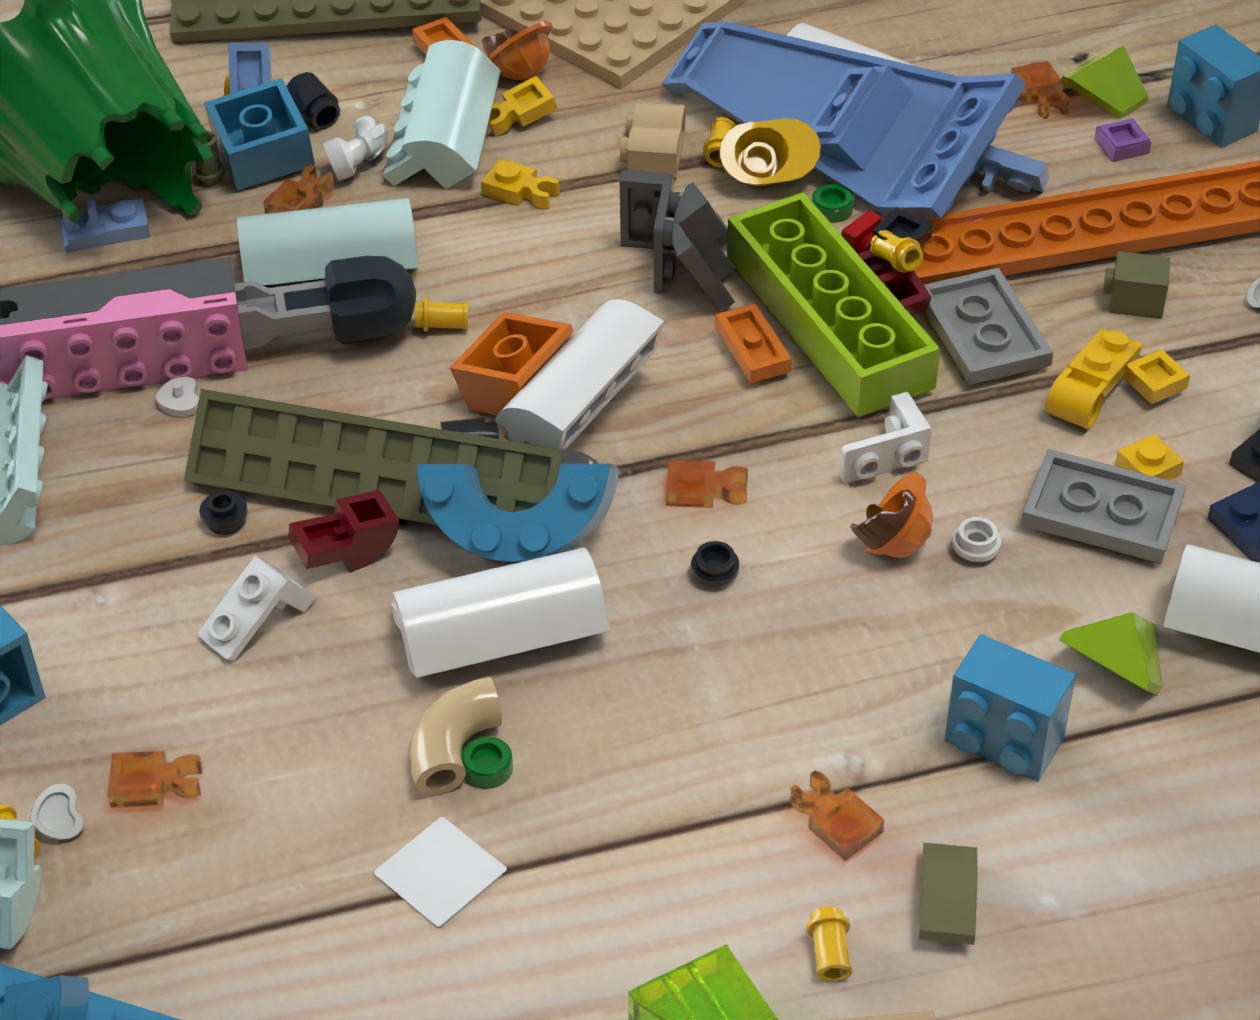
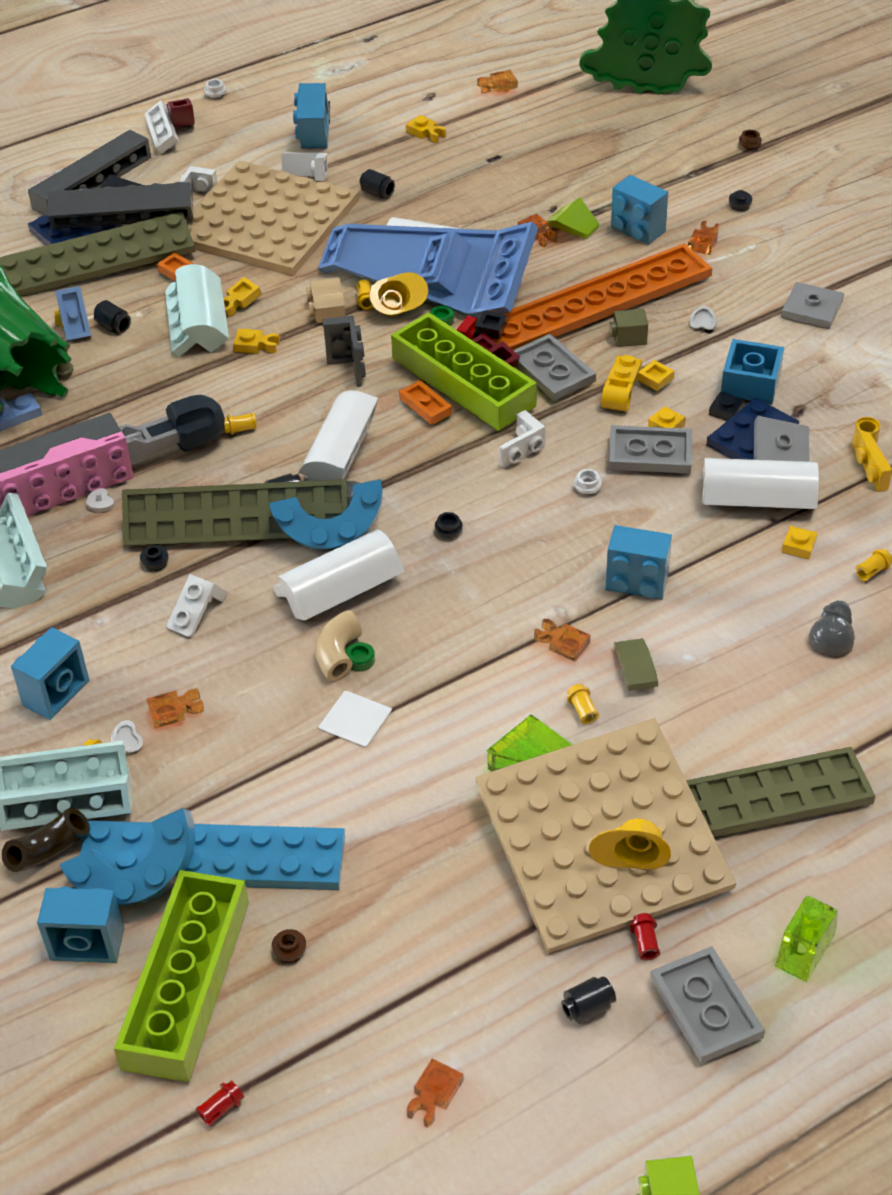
camera: 15 degrees left, 0 degrees up
(260, 134) = (92, 341): dark azure brick -> none
(300, 195) = (128, 375): clear orange plate -> none
(303, 242) = (150, 395): light aqua brick -> none
(355, 533) = (237, 553): dark red brick -> none
(366, 145) = (146, 344): white arm -> none
(506, 359) = (292, 439): orange slope -> none
(520, 53) = (228, 266): orange piece -> none
(697, 484) = (422, 485): clear orange plate -> none
(698, 241) = (377, 346): dark grey slope -> none
(899, 522) = (543, 479): orange piece -> none
(903, 253) = (498, 335): yellow pin -> none
(1017, 170) = (542, 278): light blue plate -> none
(1122, 140) = (593, 250): medium lavender tile -> none
(1123, 645) = (684, 519): lime slope -> none

